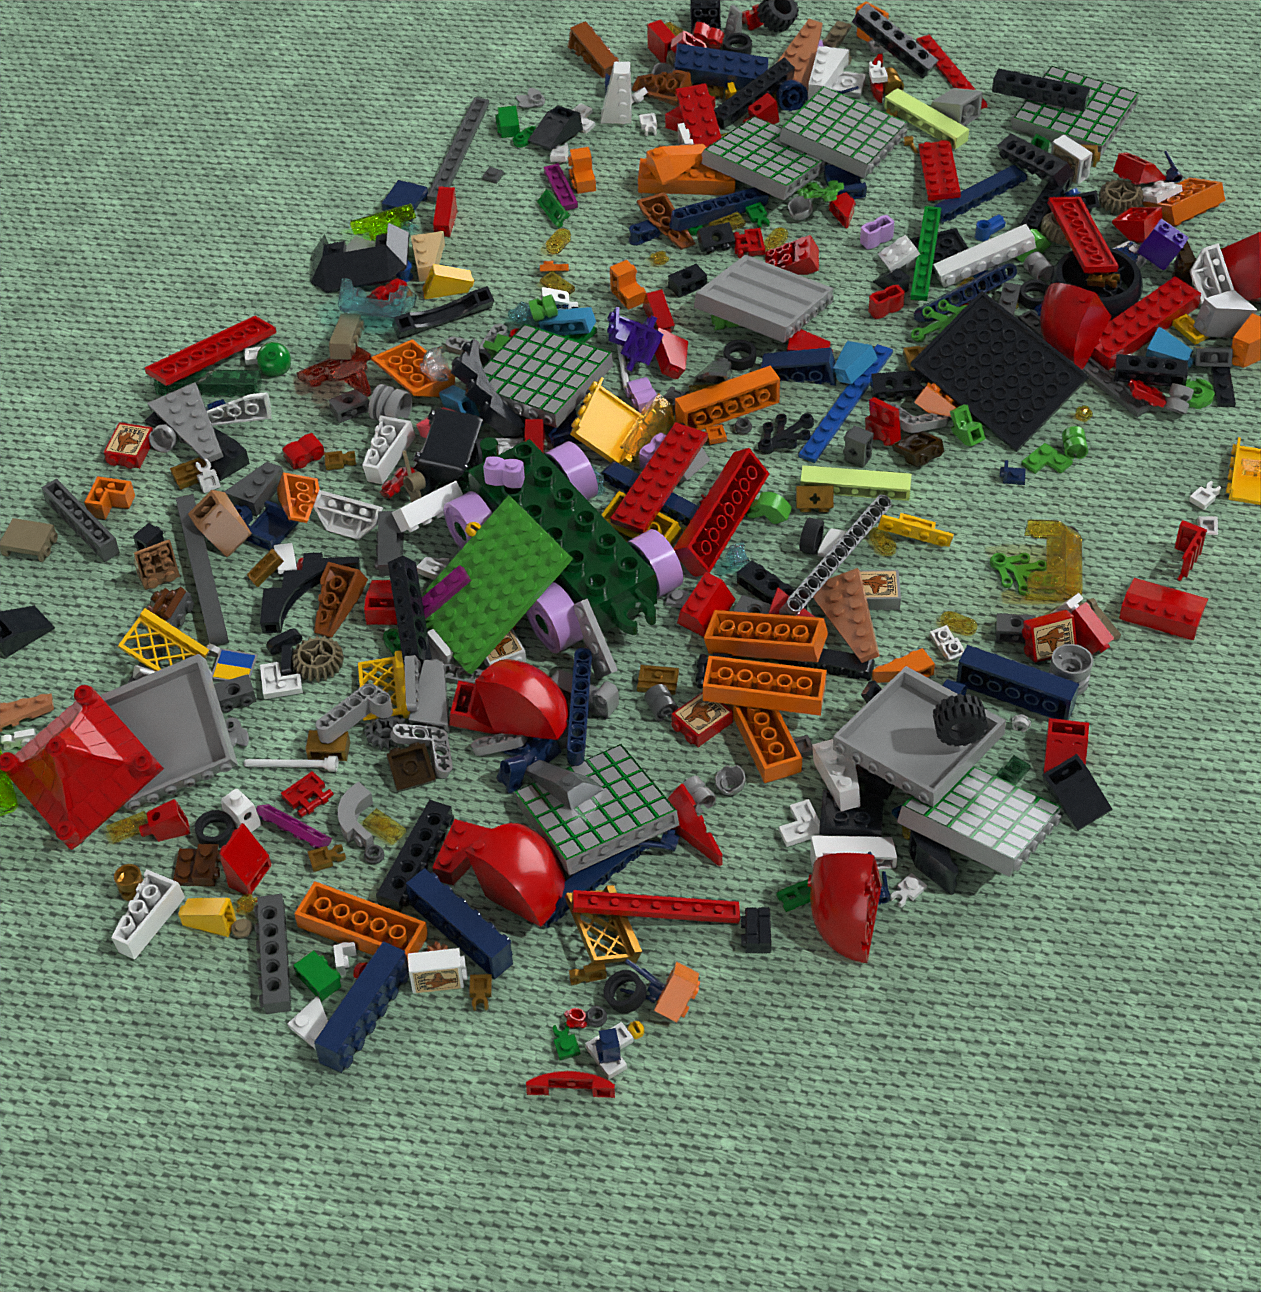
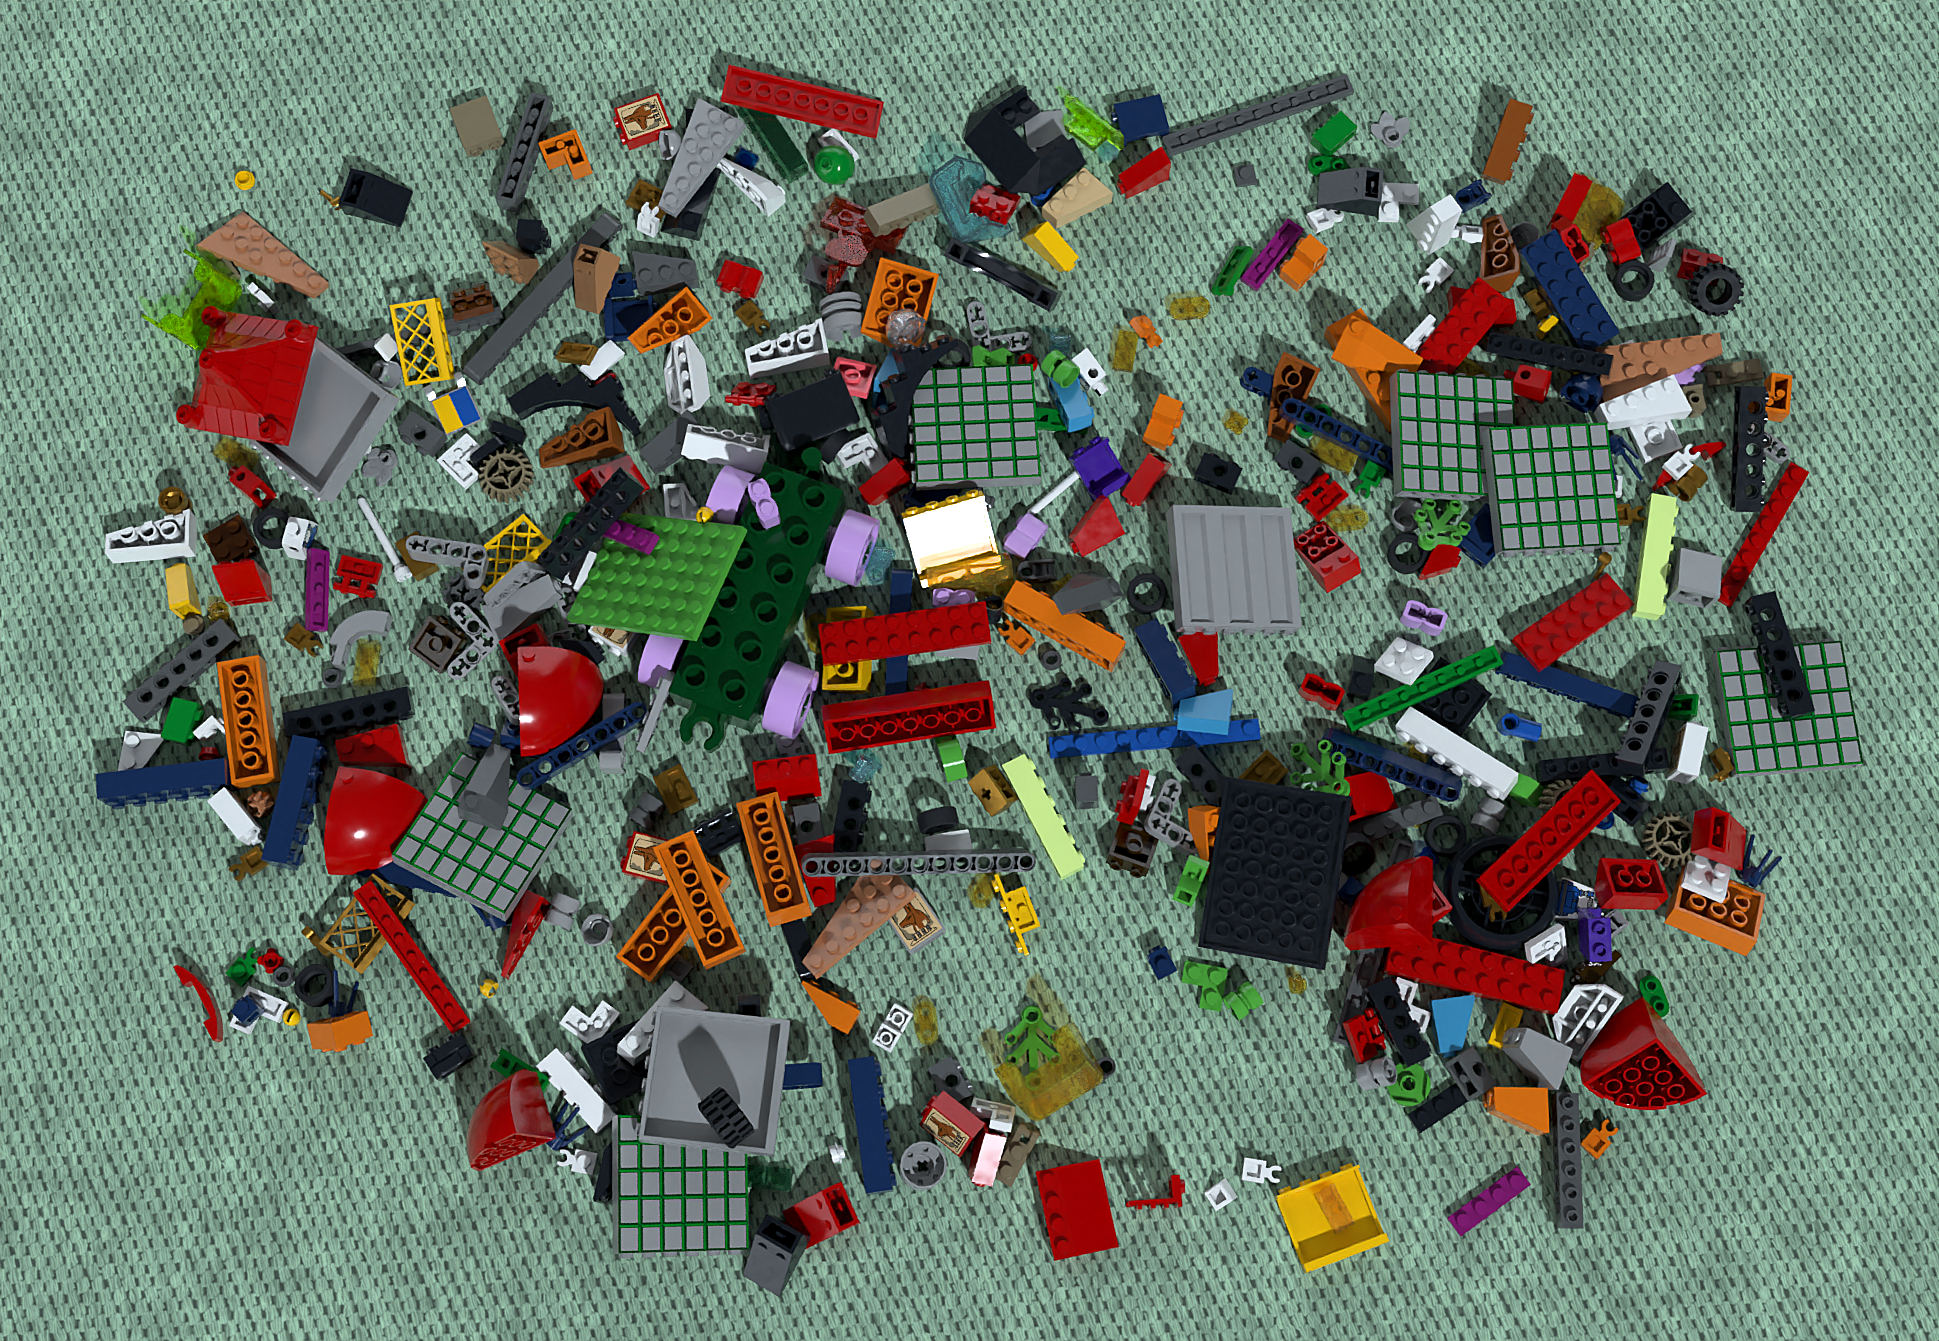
camera: 55 degrees right, 25 degrees up
(413, 481) = (750, 410): dark tan piece -> none
(641, 343) = (1081, 494): dark purple plate -> none
(719, 878) = (488, 984): none -> yellow hinge
(825, 230) = (1397, 565): none -> black tyre
(1150, 275) = (1548, 944): none -> white plate

